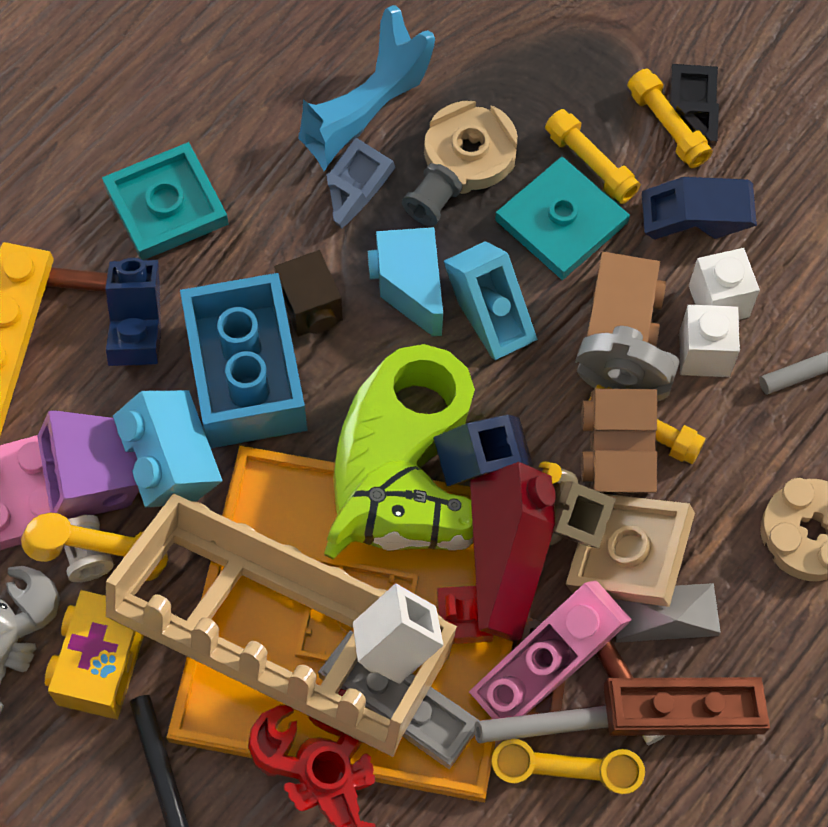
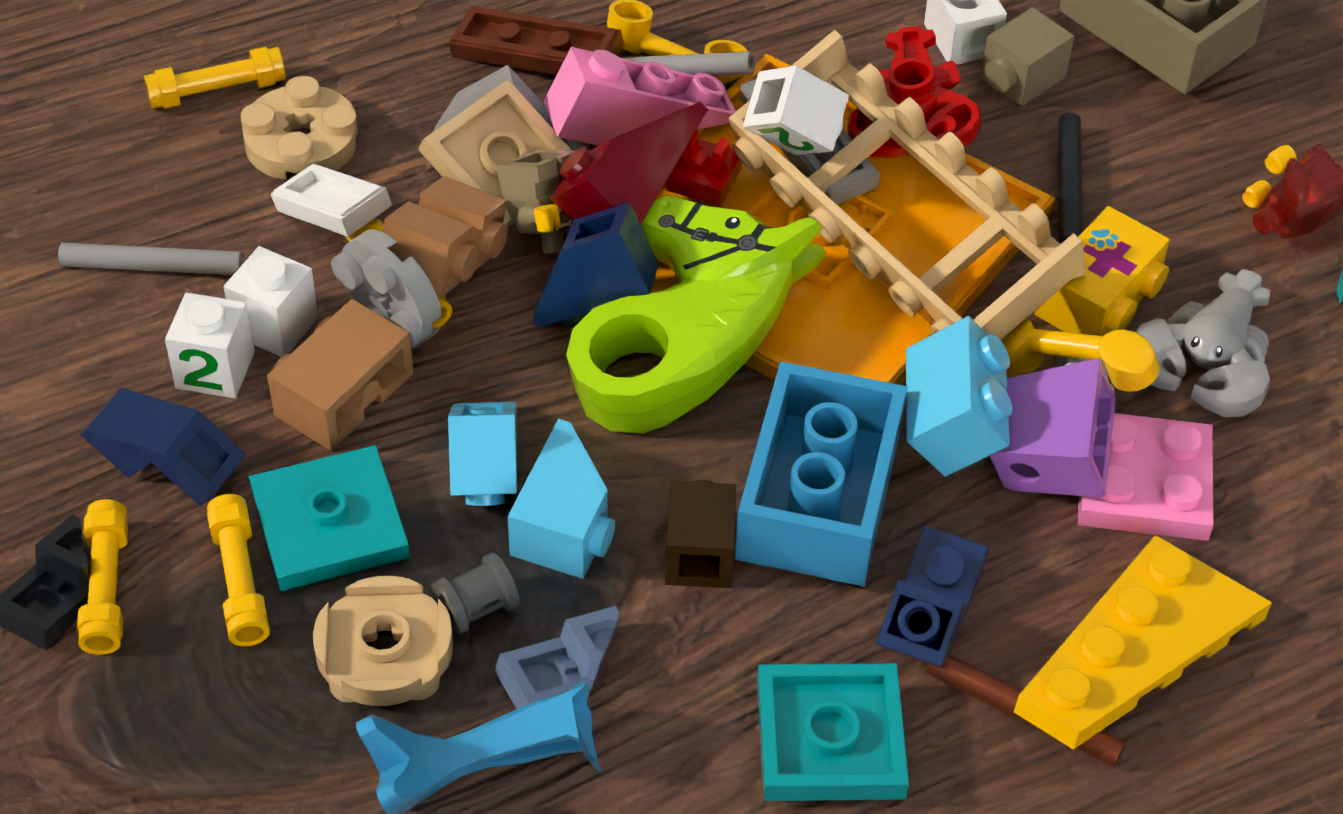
camera: 155 degrees left, 15 degrees down
(734, 454) = (331, 199): none -> white tile

